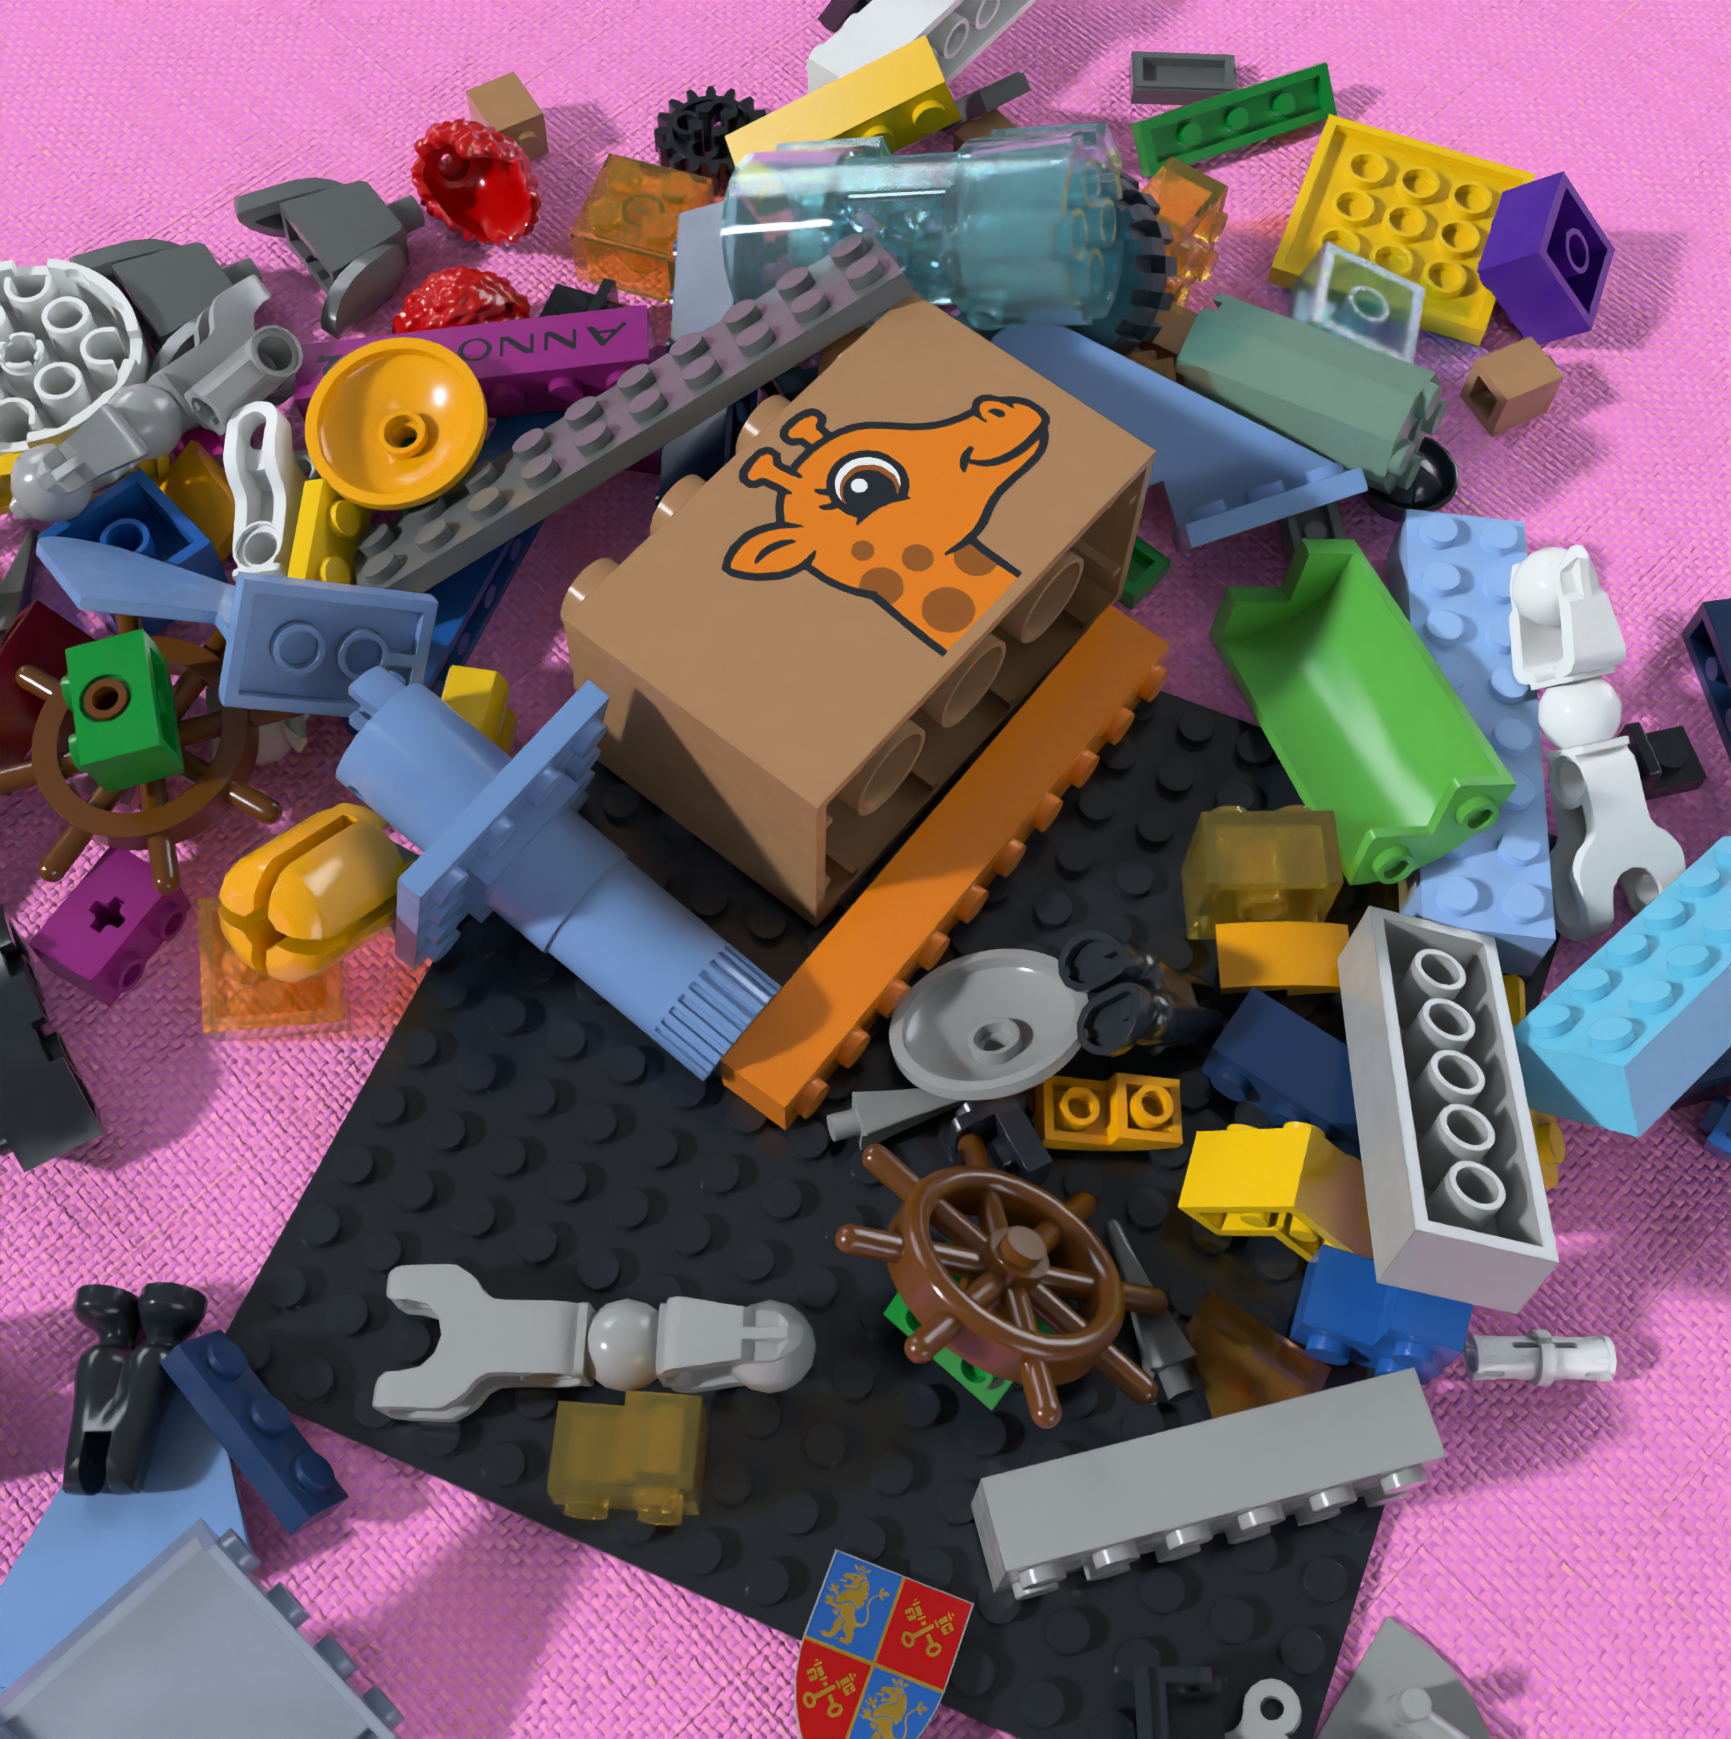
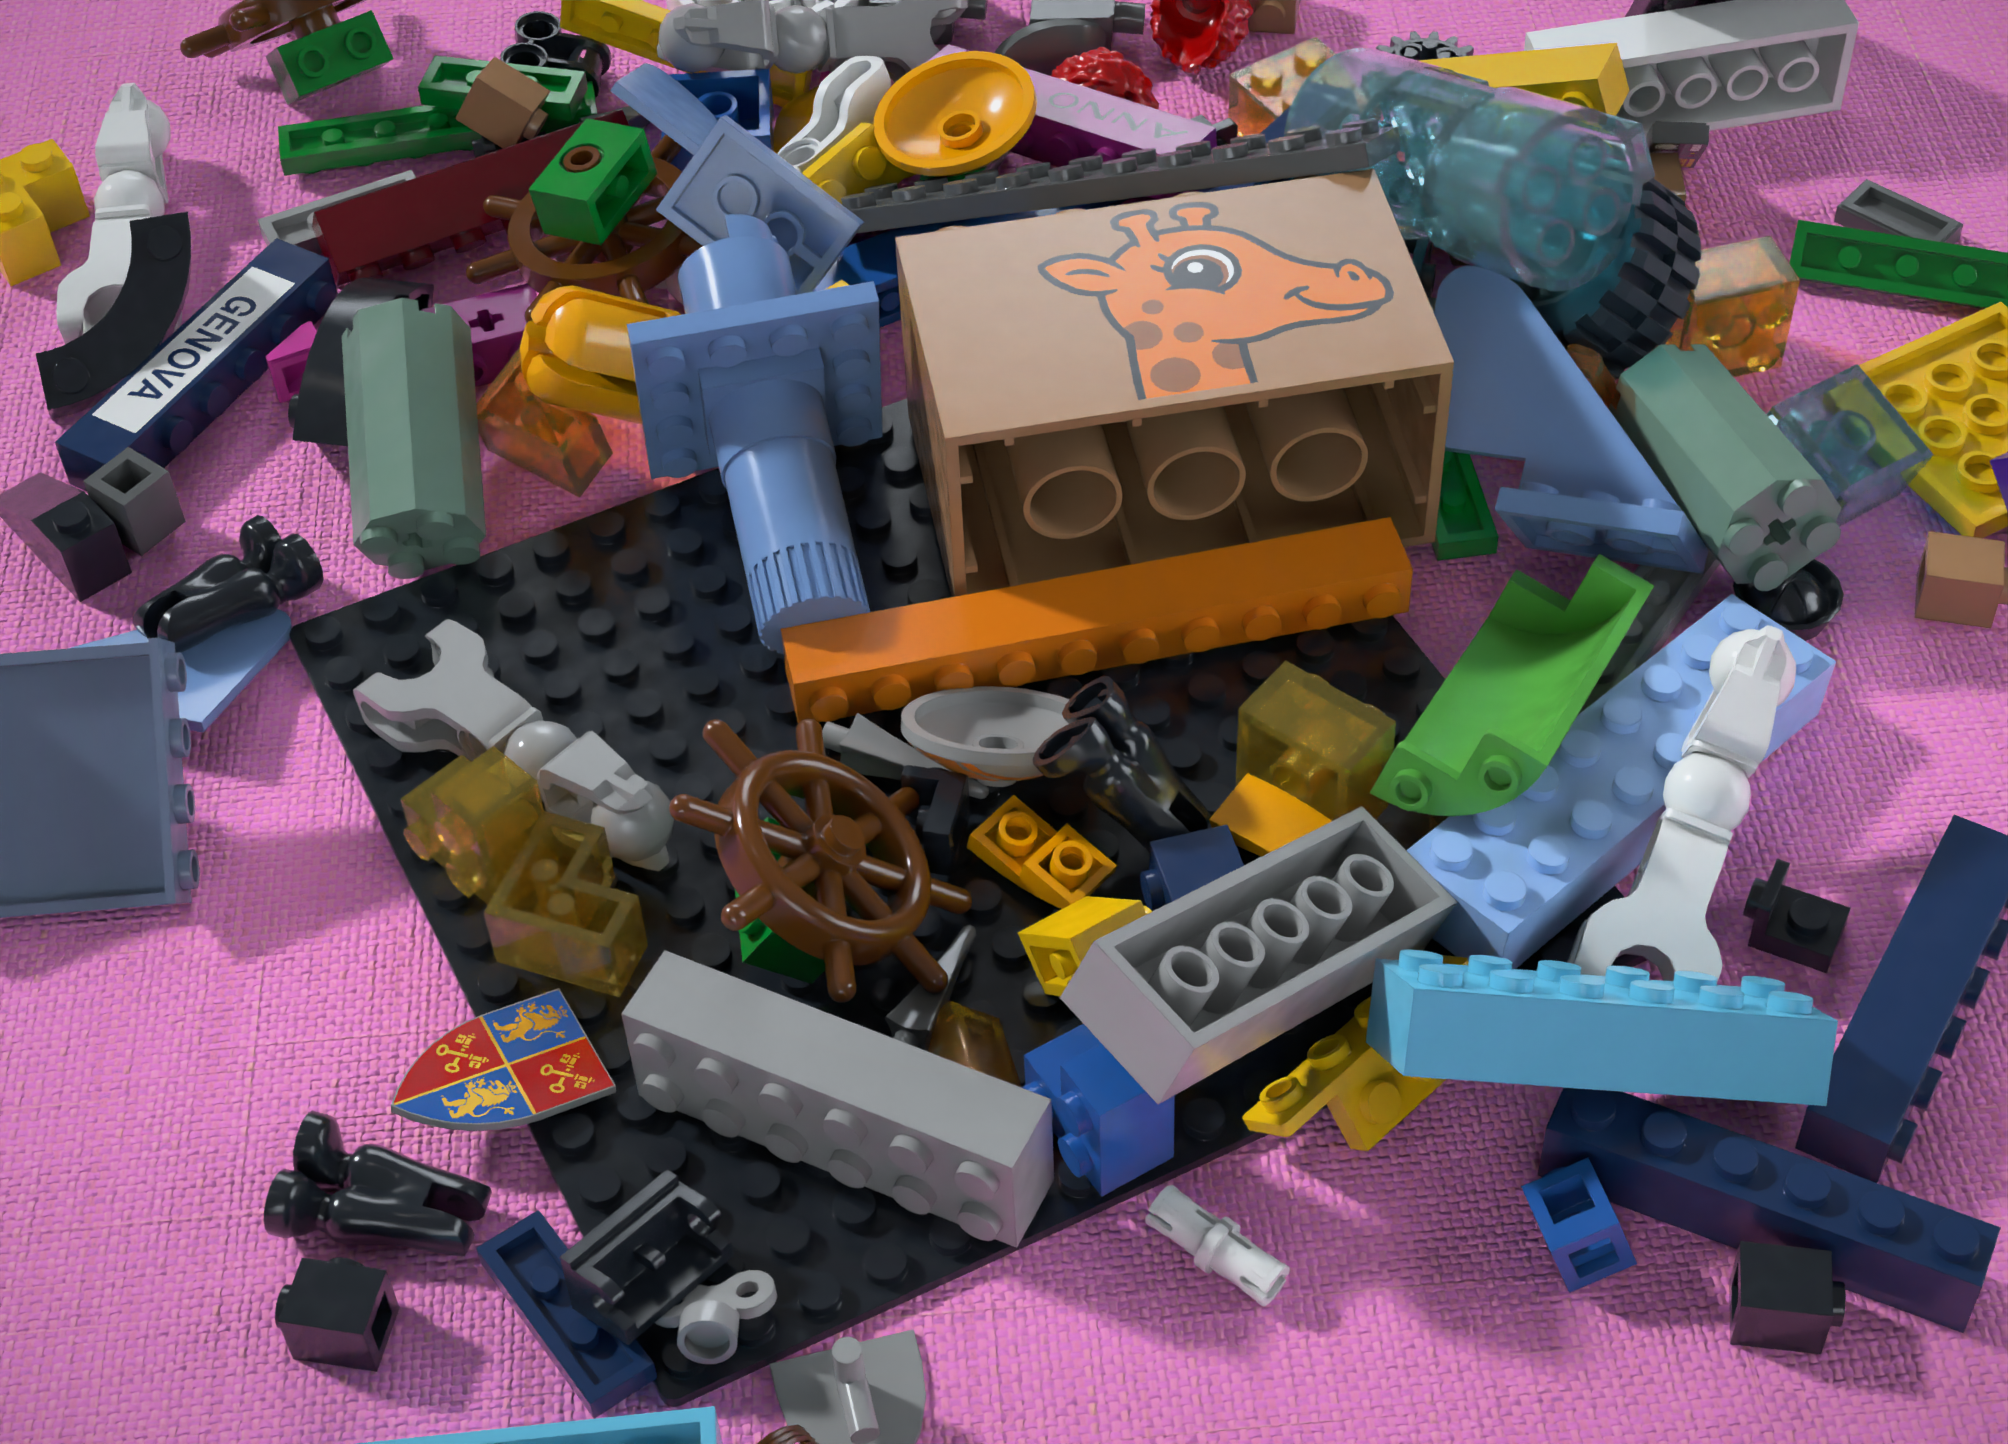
camera: 45 degrees right, 15 degrees down
(180, 1099) = (413, 438): none -> sand green brick
(244, 377) = (886, 39): light grey piece -> none
(255, 1430) = (274, 668): dark blue plate -> none
(797, 1498) = (561, 914): none -> clear yellow brick

